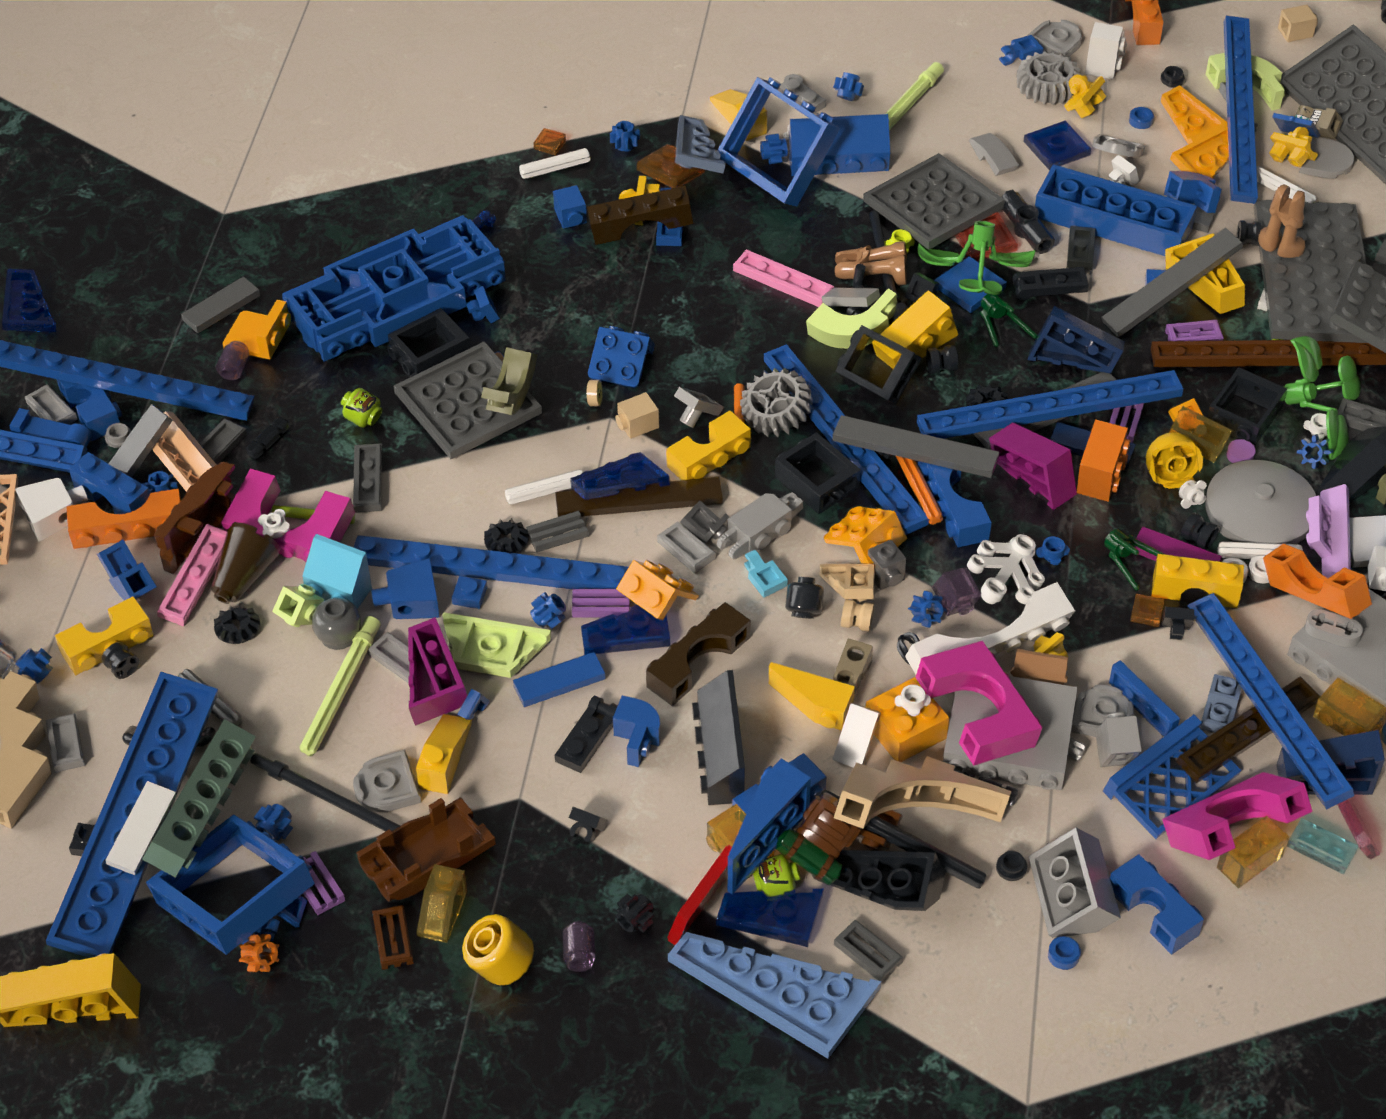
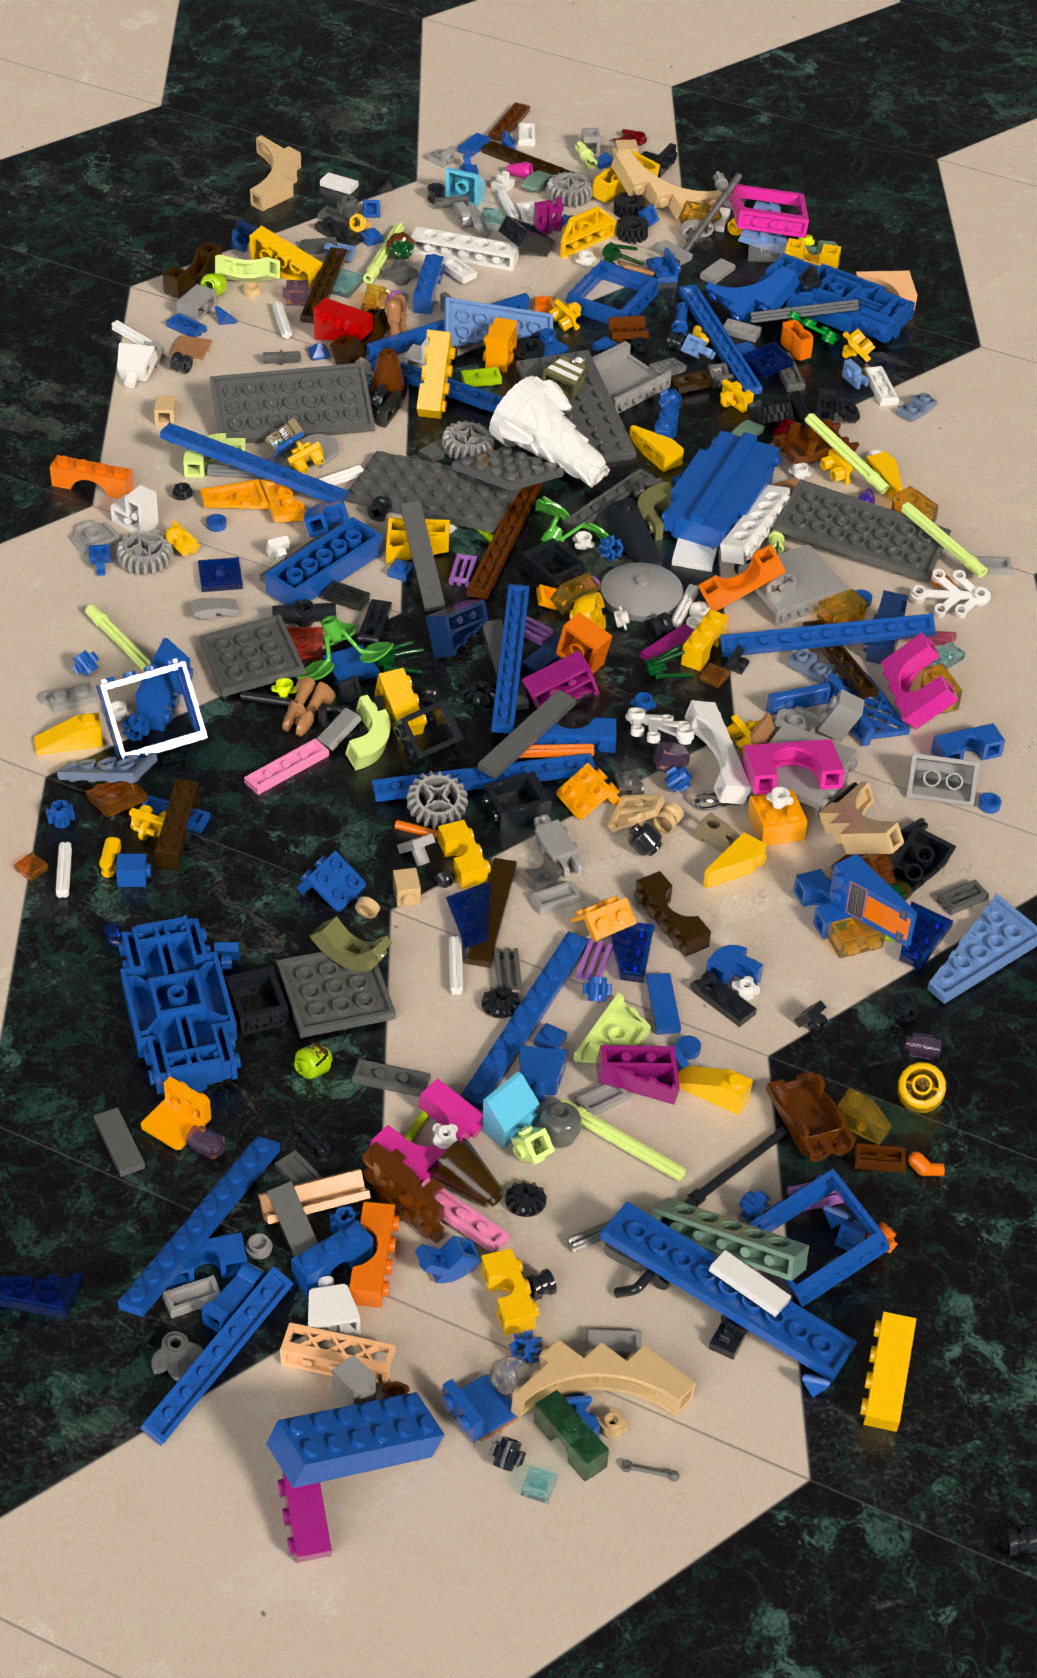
camera: 75 degrees left, 5 degrees down
(42, 927) = (815, 1383): none -> blue slope
(386, 783) = (729, 1131): light grey tile -> none
(393, 973) = (924, 1167): none -> orange arm
(499, 717) = (689, 1046): none -> blue tile
(589, 187) = (109, 856): none -> yellow bar
(611, 758) = (746, 988): none -> white plate
(666, 441) = (444, 878): none -> black hinge
(700, 897) = (907, 961): red tile -> none
(720, 740) = (766, 915): slope -> none
(764, 576) = (609, 857): medium azure plate -> none
(856, 735) = (786, 845): tile -> none
(1011, 866) = (914, 805): black plate -> none
(1118, 146) = (248, 541): light grey tile -> none
(1291, 214) = (403, 465): medium nougat piece -> none
(1330, 528) = (683, 563): lavender bracket -> none

